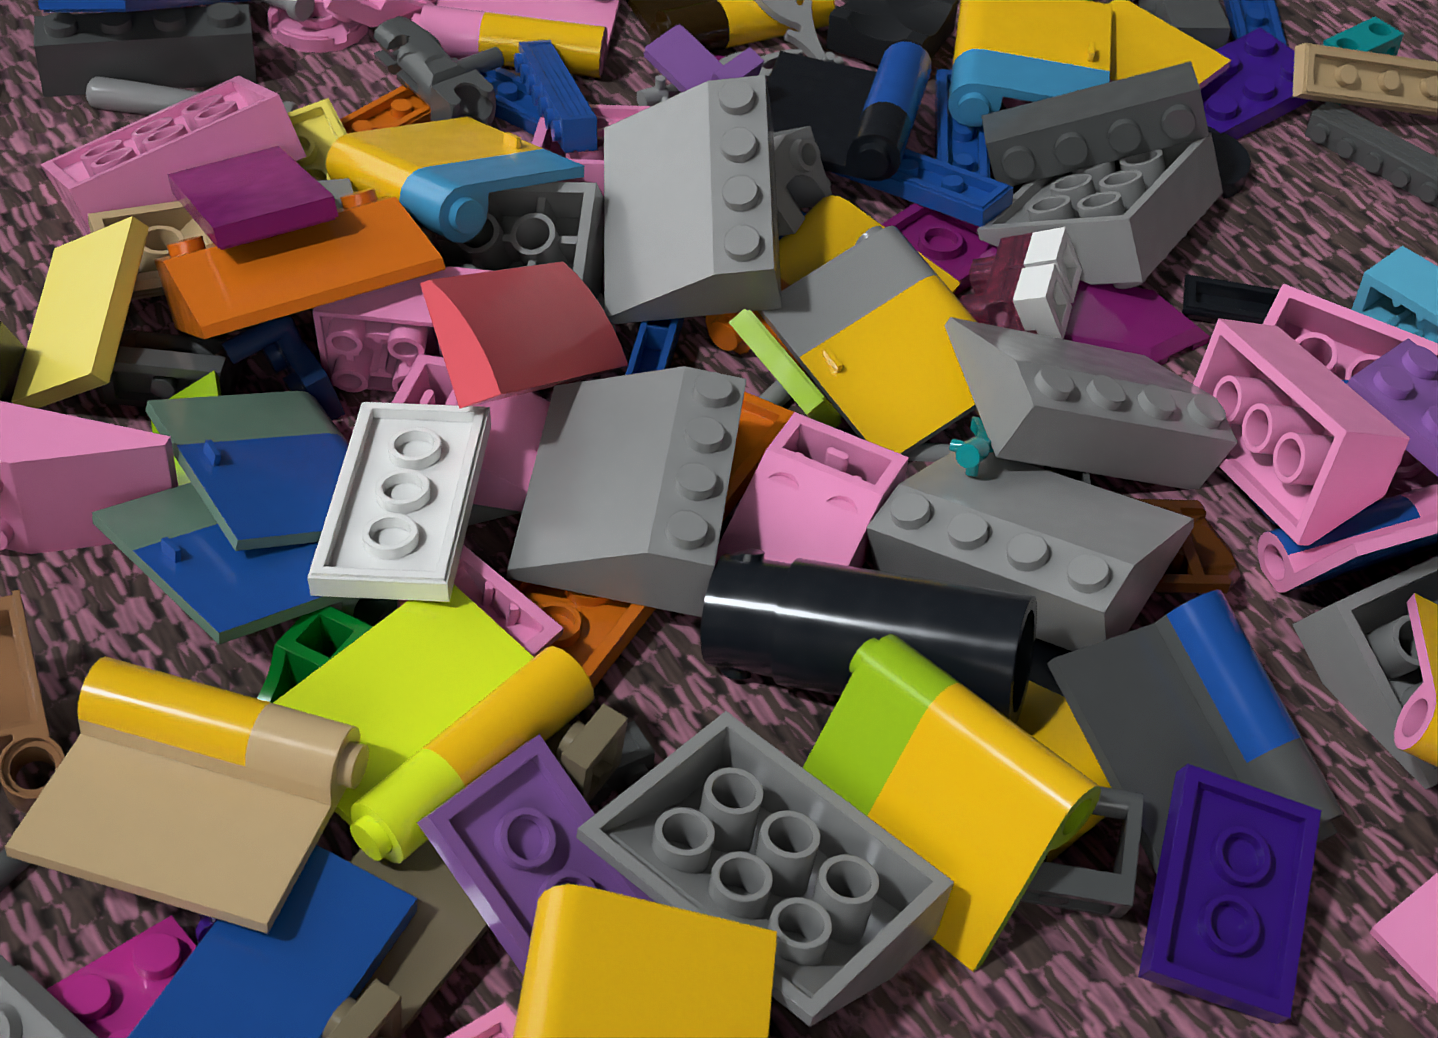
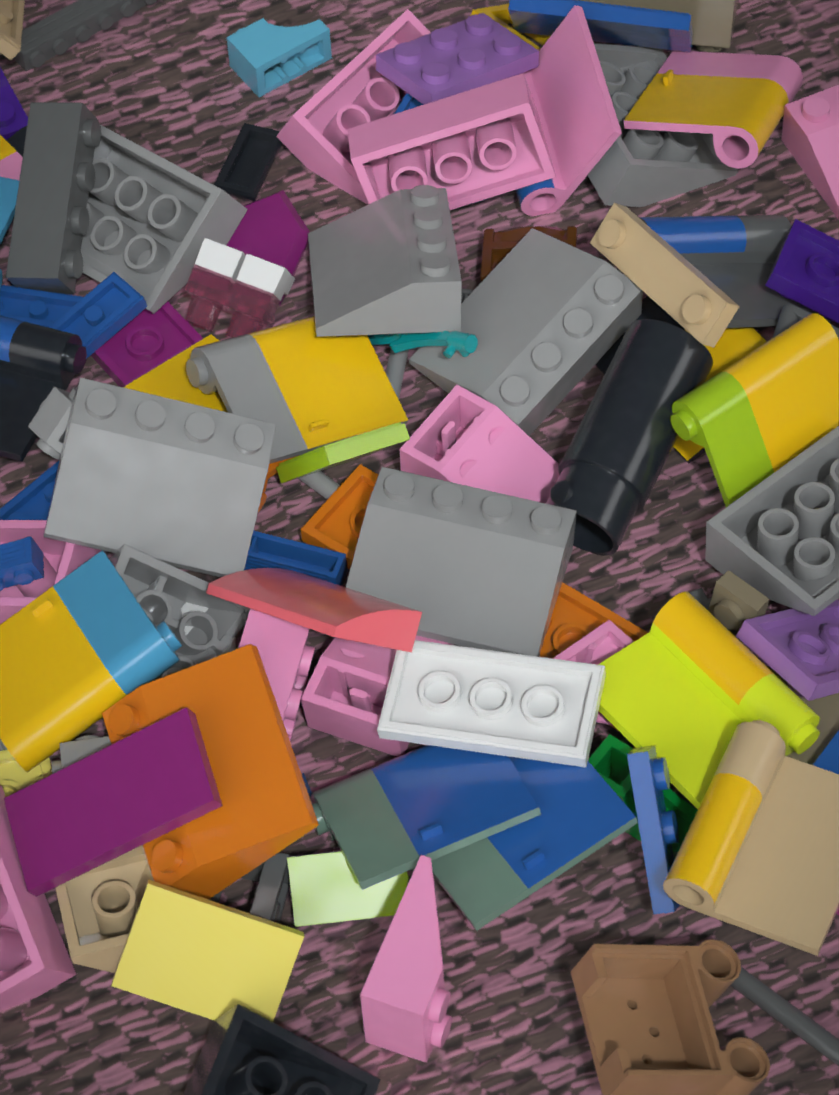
camera: 75 degrees left, 10 degrees up
(266, 653) = (656, 825): none -> plate
(1064, 643) = (664, 275): none -> tan plate

